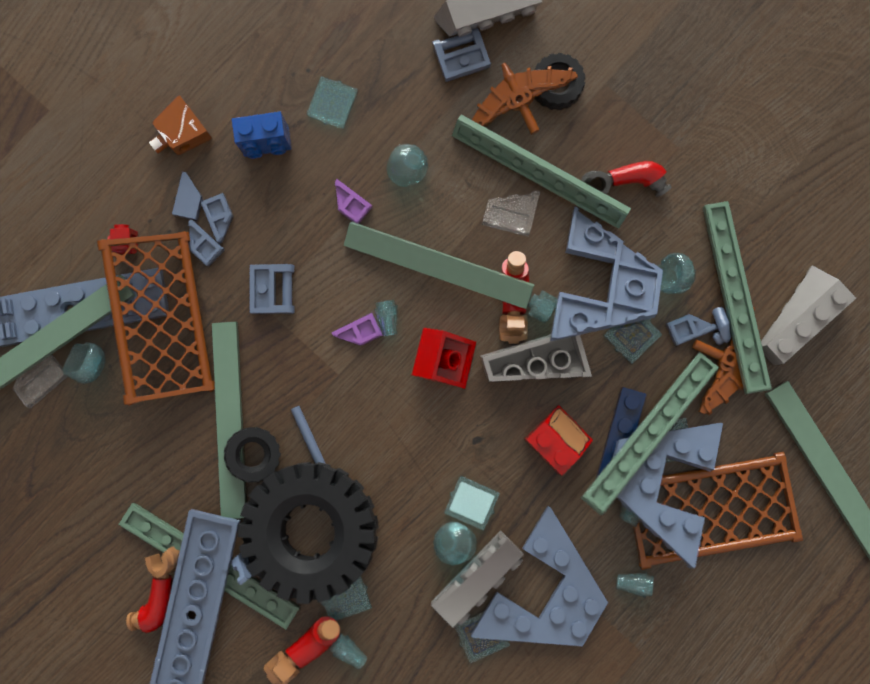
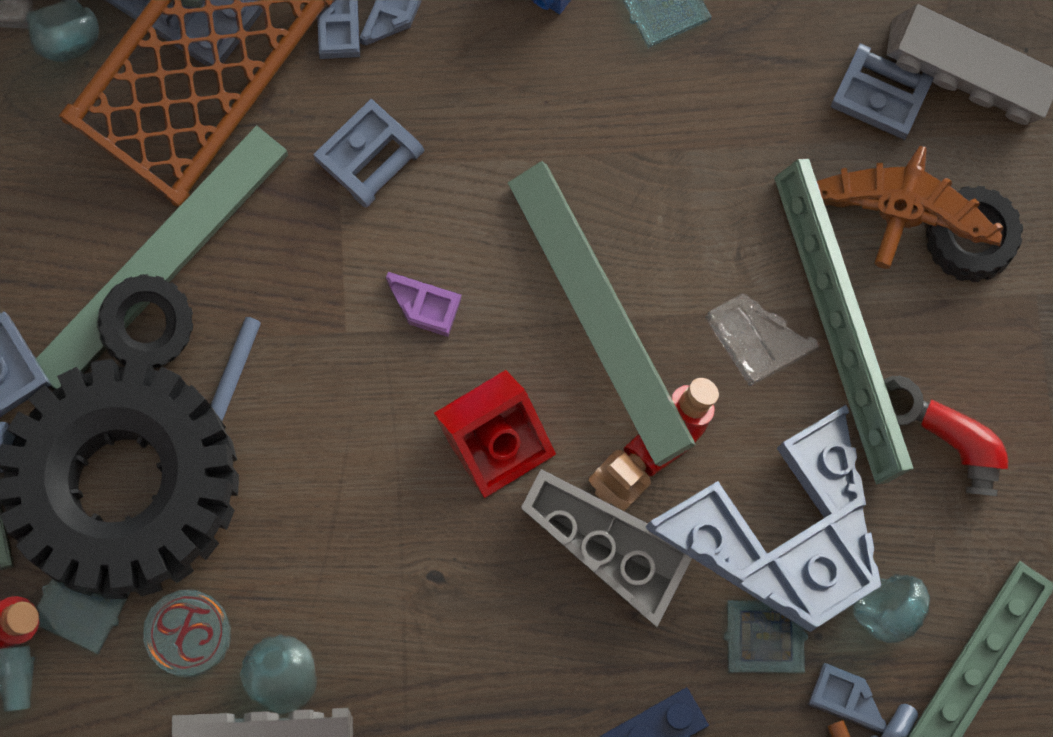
camera: 40 degrees right, 10 degrees down
(351, 204) = (567, 143): medium lavender tile -> none
(387, 316) = (475, 316): clear light blue cone -> none
(400, 564) = (187, 633): none -> clear light blue tile
(407, 165) = (682, 160): clear light blue hair -> none
(472, 502) = (351, 647): clear light blue piece -> none
(542, 306) = (680, 483): clear light blue plate -> none
(559, 440) = (538, 673): red slope -> none

